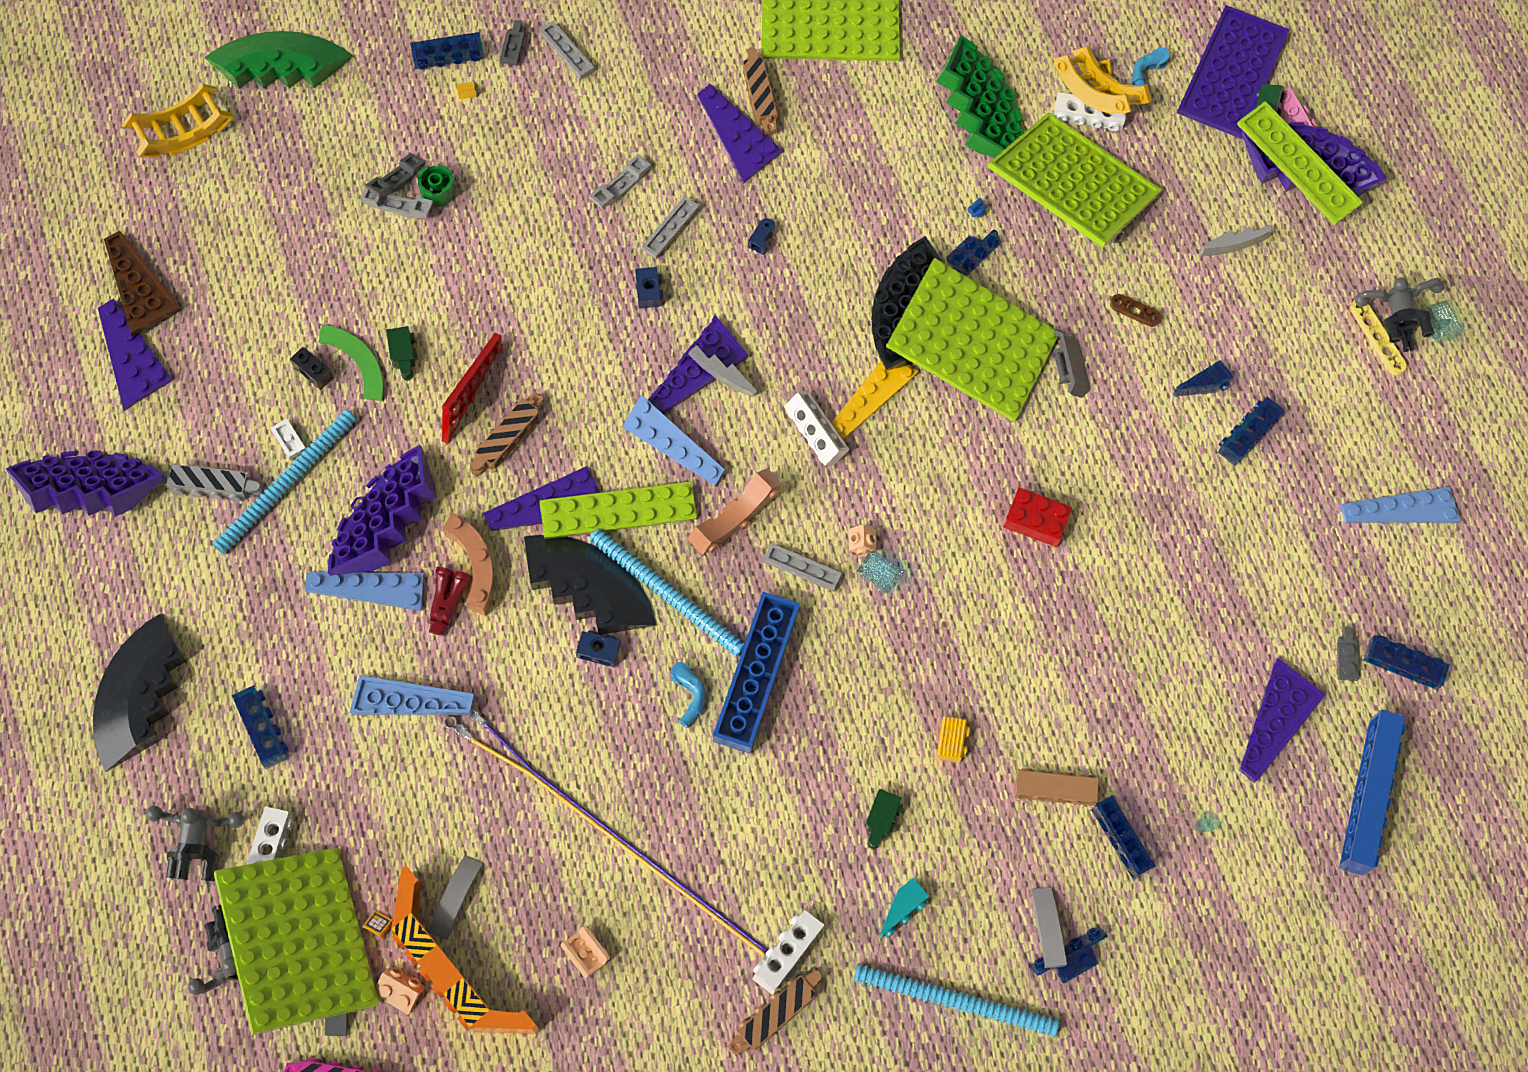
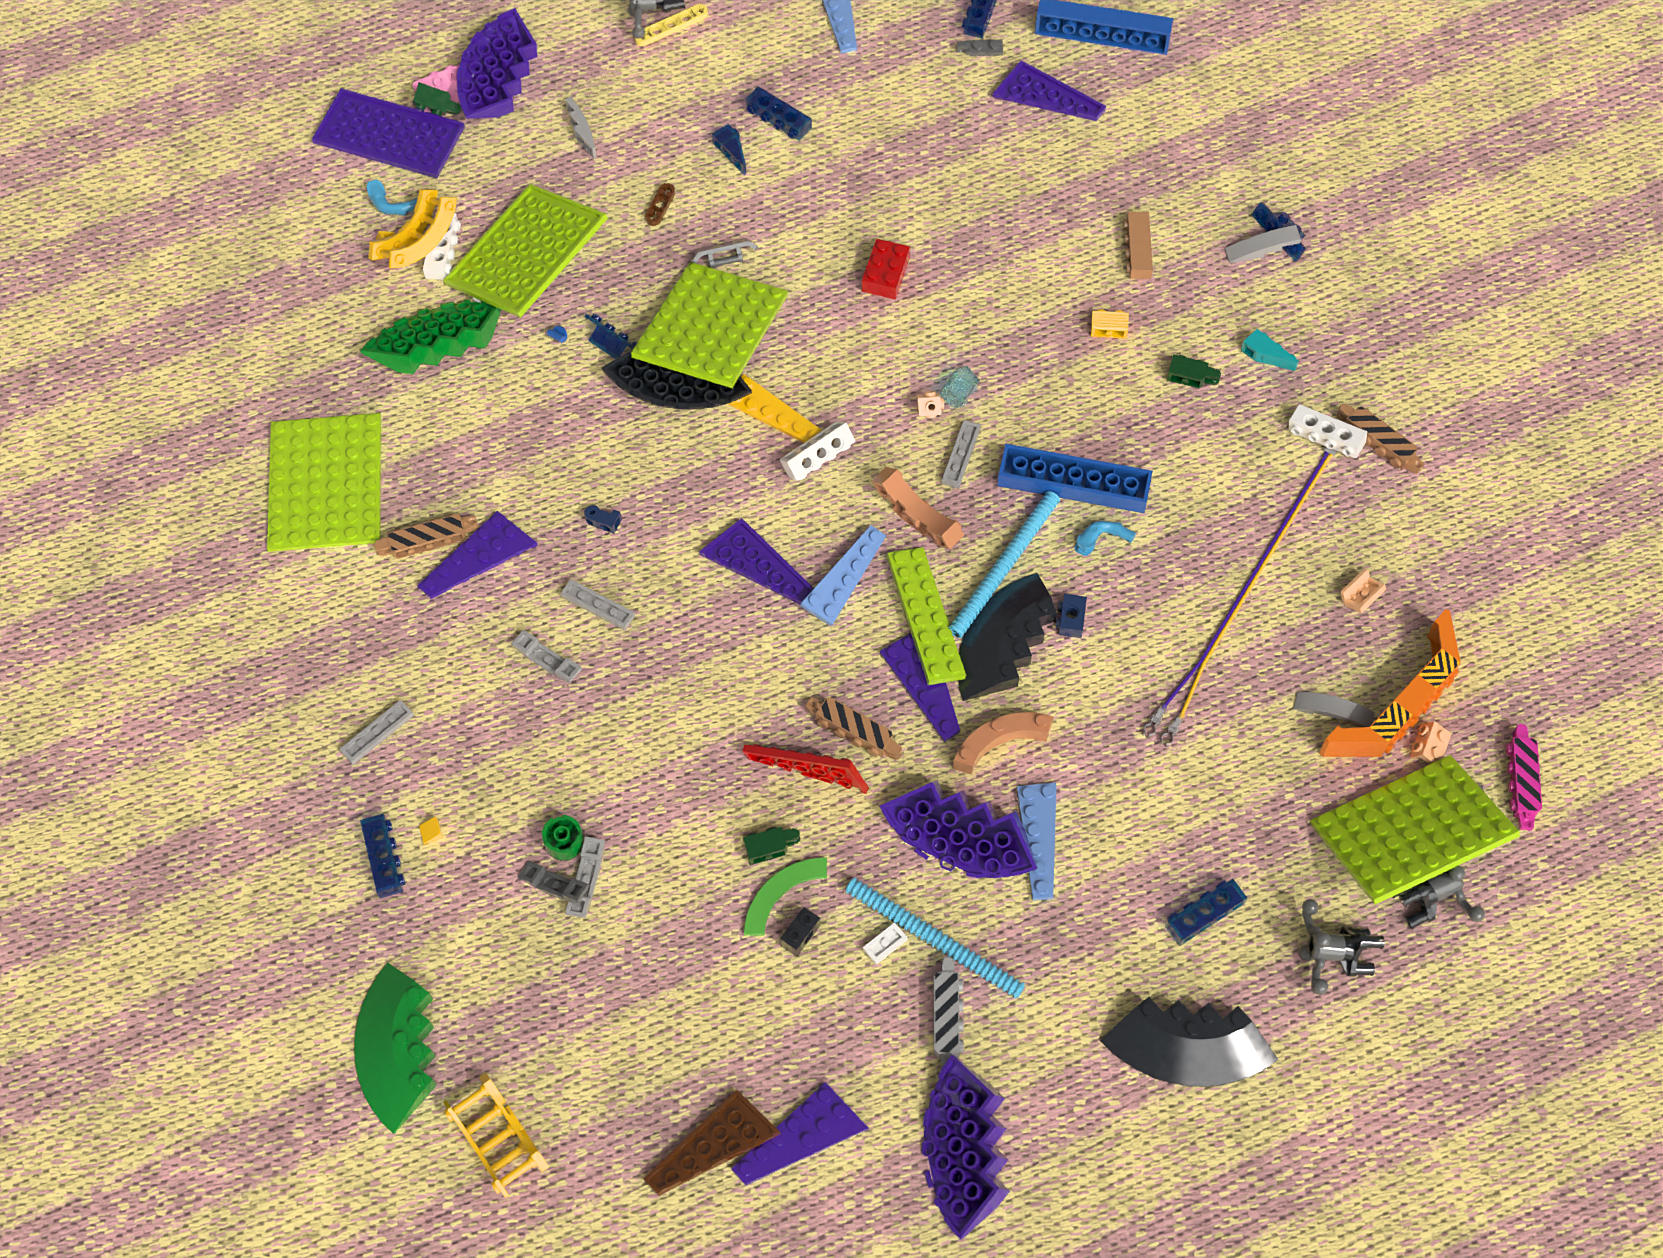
camera: 90 degrees left, 5 degrees down
(270, 819) = (1318, 888): white brick -> none
(377, 924) = (1375, 773): slope -> none
(392, 697) = (1153, 796): medium blue wing -> none
(442, 609) = (1044, 758): dark red piece -> none
(513, 44) = (370, 788): dark grey hinge -> none
(648, 278) = (682, 620): dark blue brick -> none
(729, 376) = (767, 532): light grey slope -> none
(957, 1000) = (1337, 309): medium azure piece -> none
(1123, 837) = (1175, 194): clear blue brick -> none
(1206, 823) = (1147, 141): clear light blue tile -> none
(1299, 163) = (502, 70): lime plate -> none

